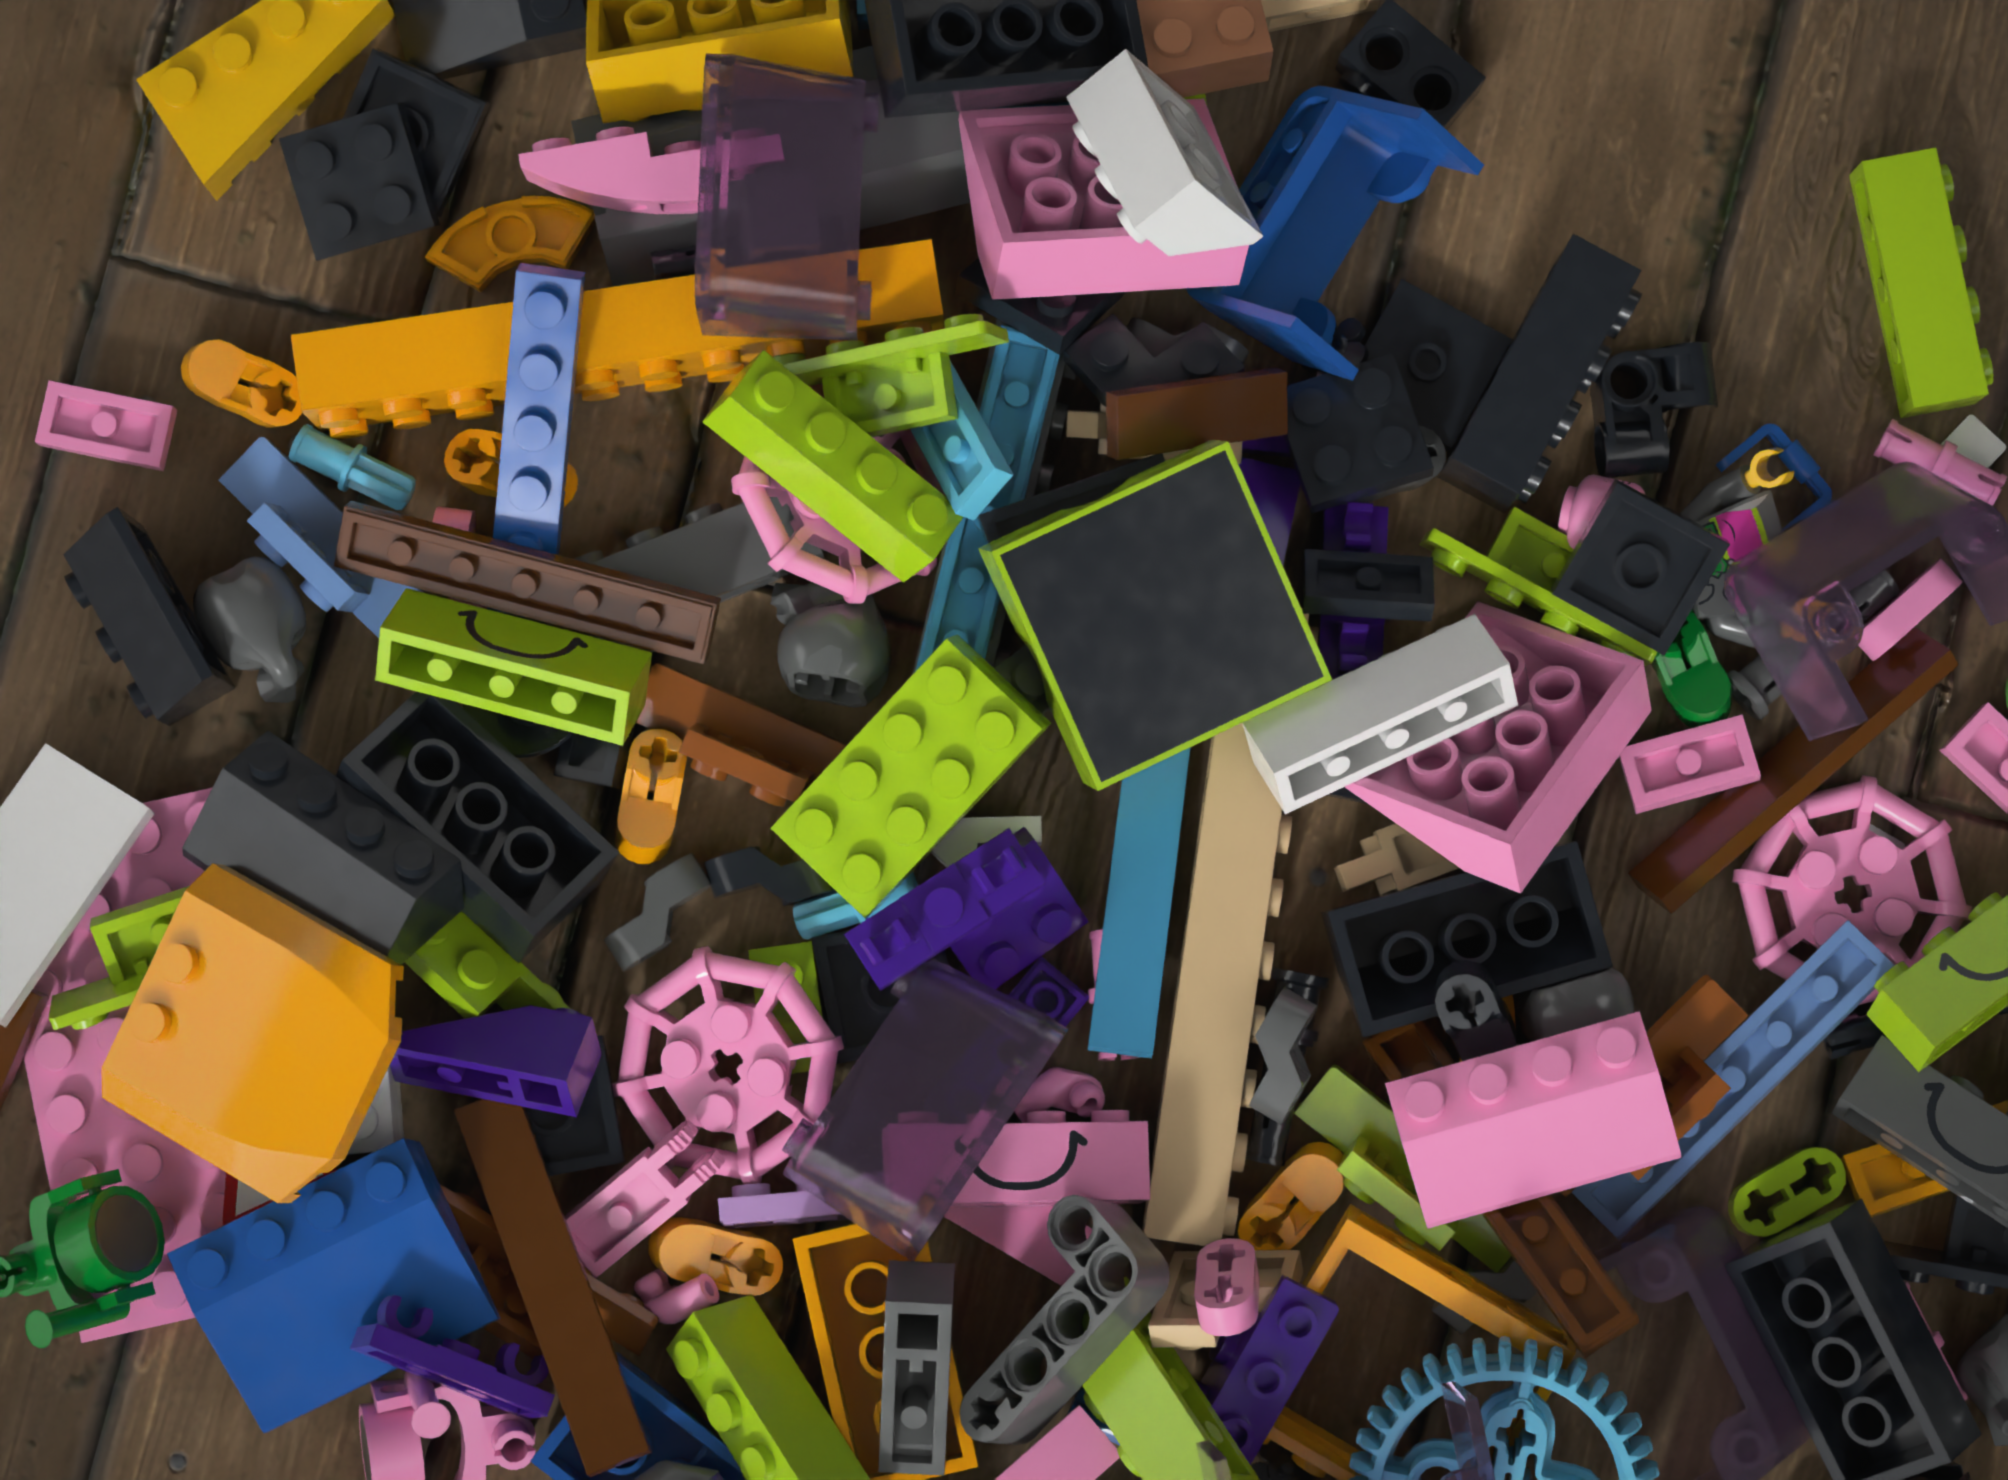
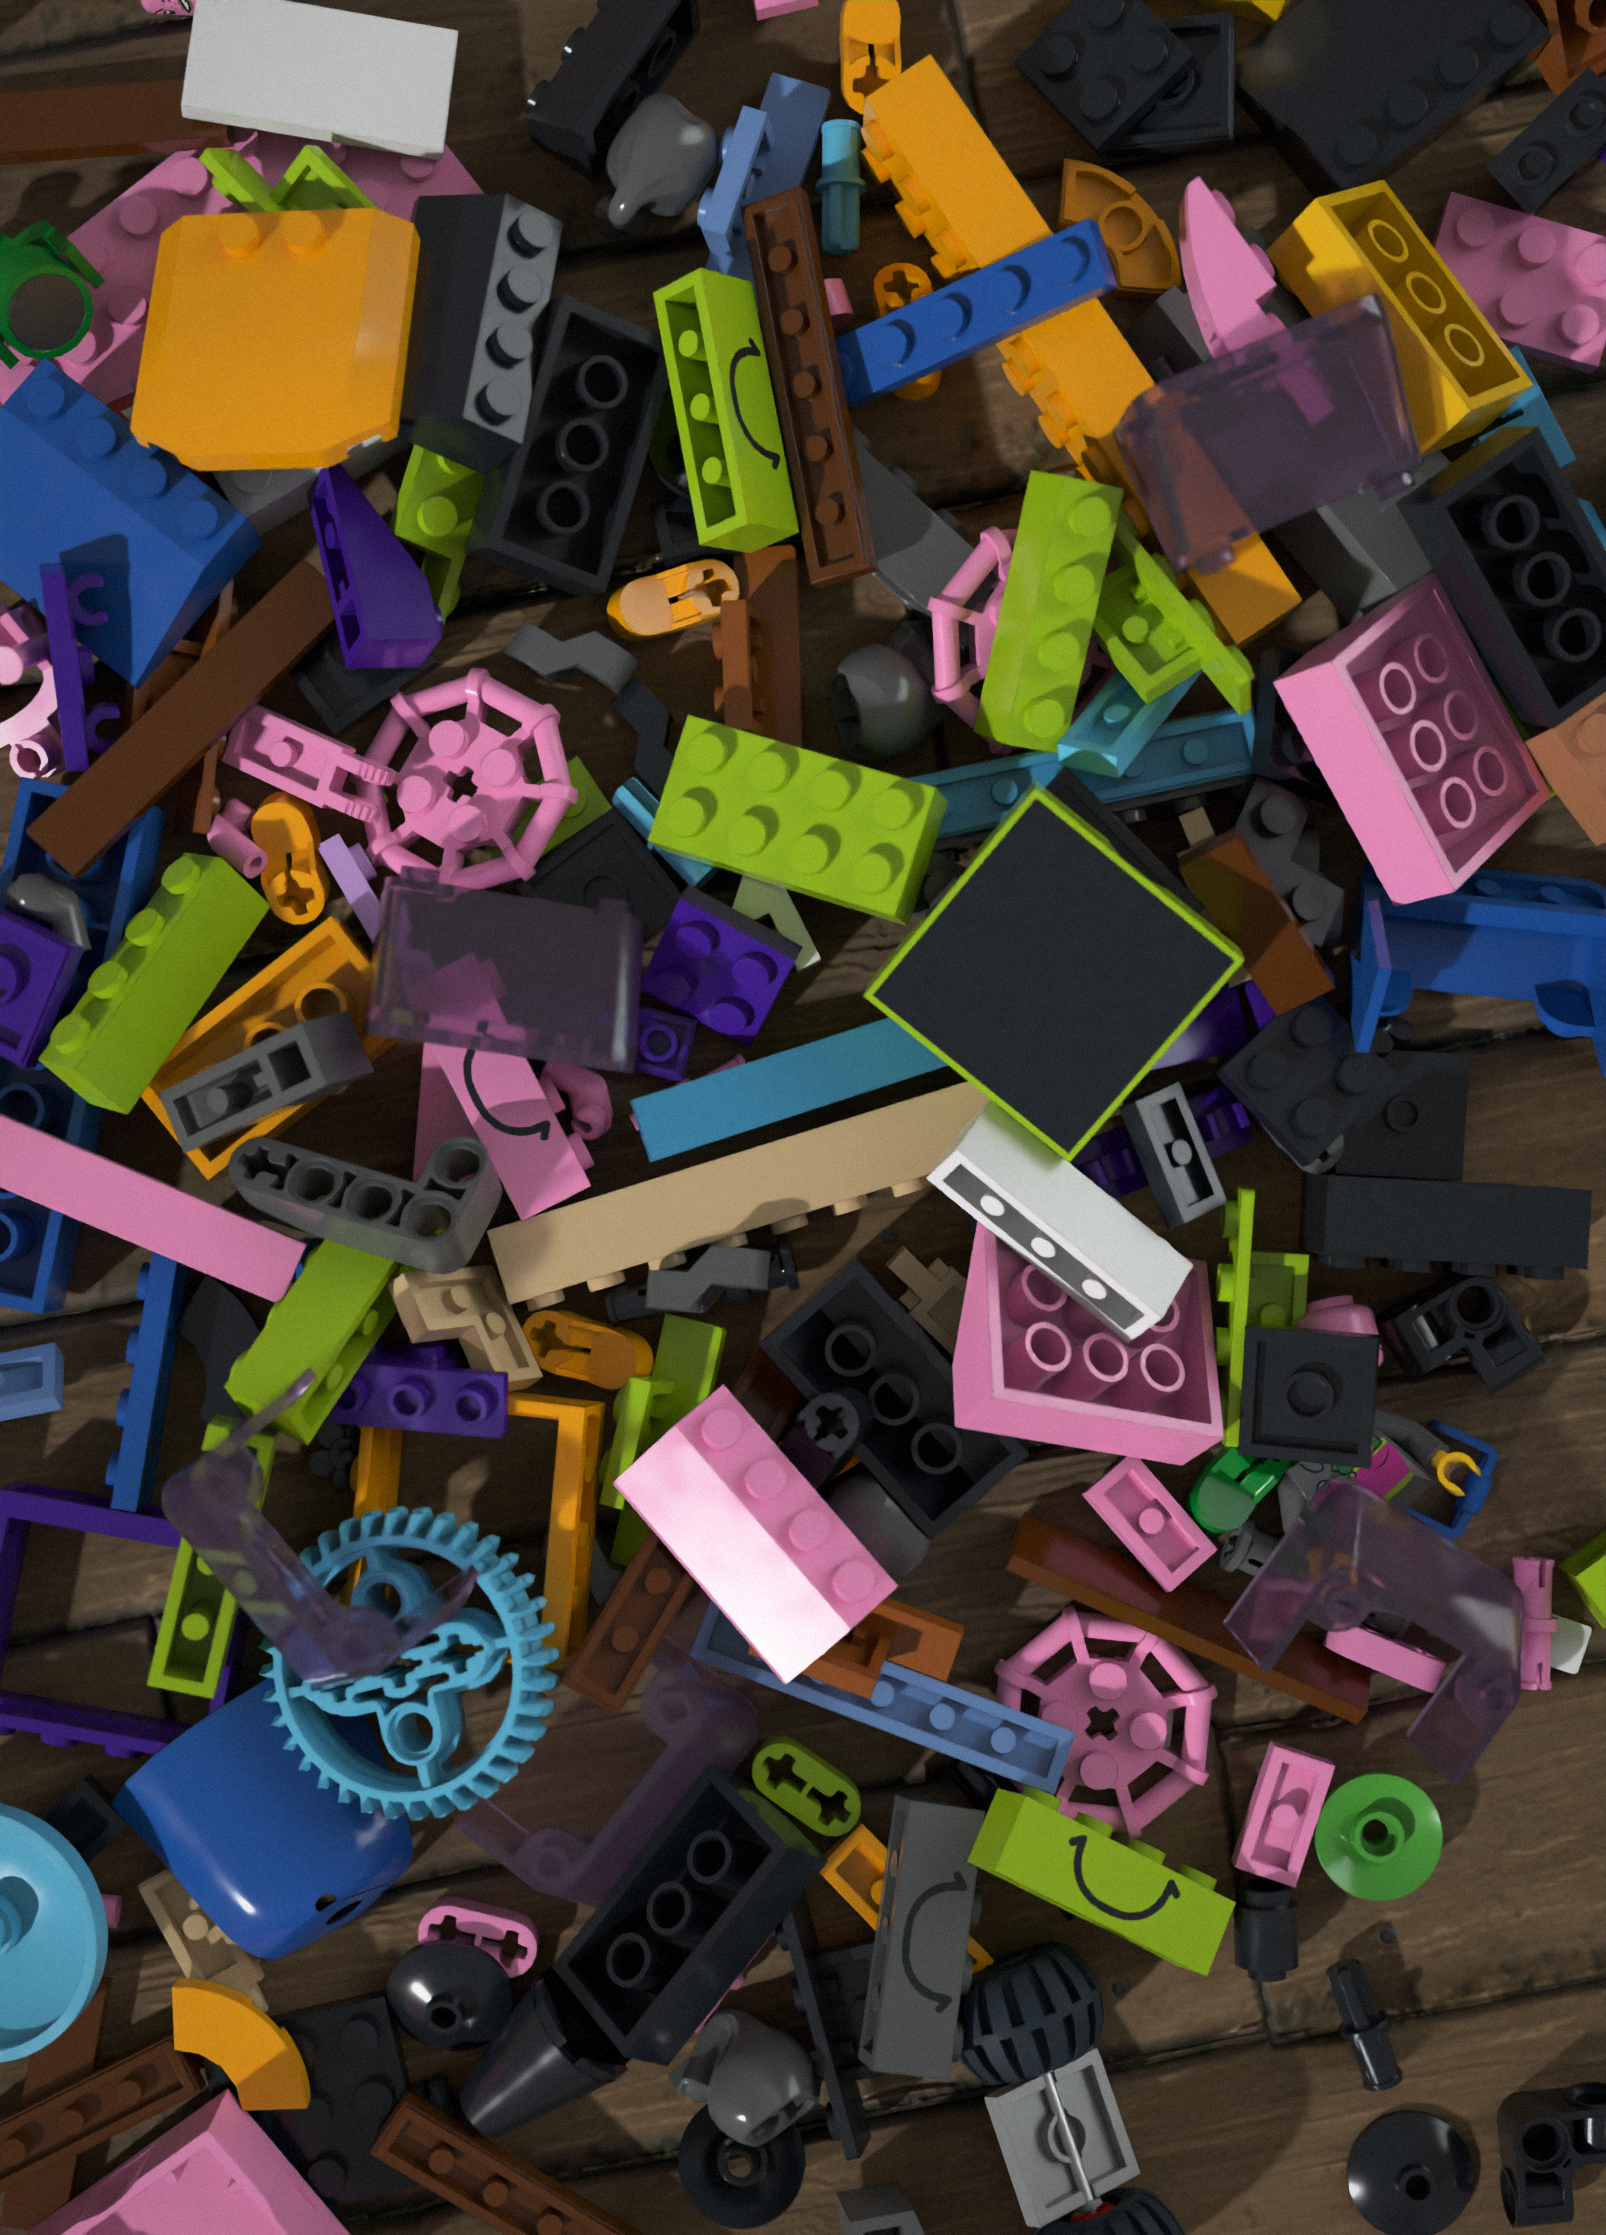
camera: 70 degrees right, 5 degrees up
(944, 909) = (690, 909): dark purple plate -> none
(1159, 161) = (1476, 773): white slope -> none
(1227, 1287) = (468, 1318): bright pink beam -> none

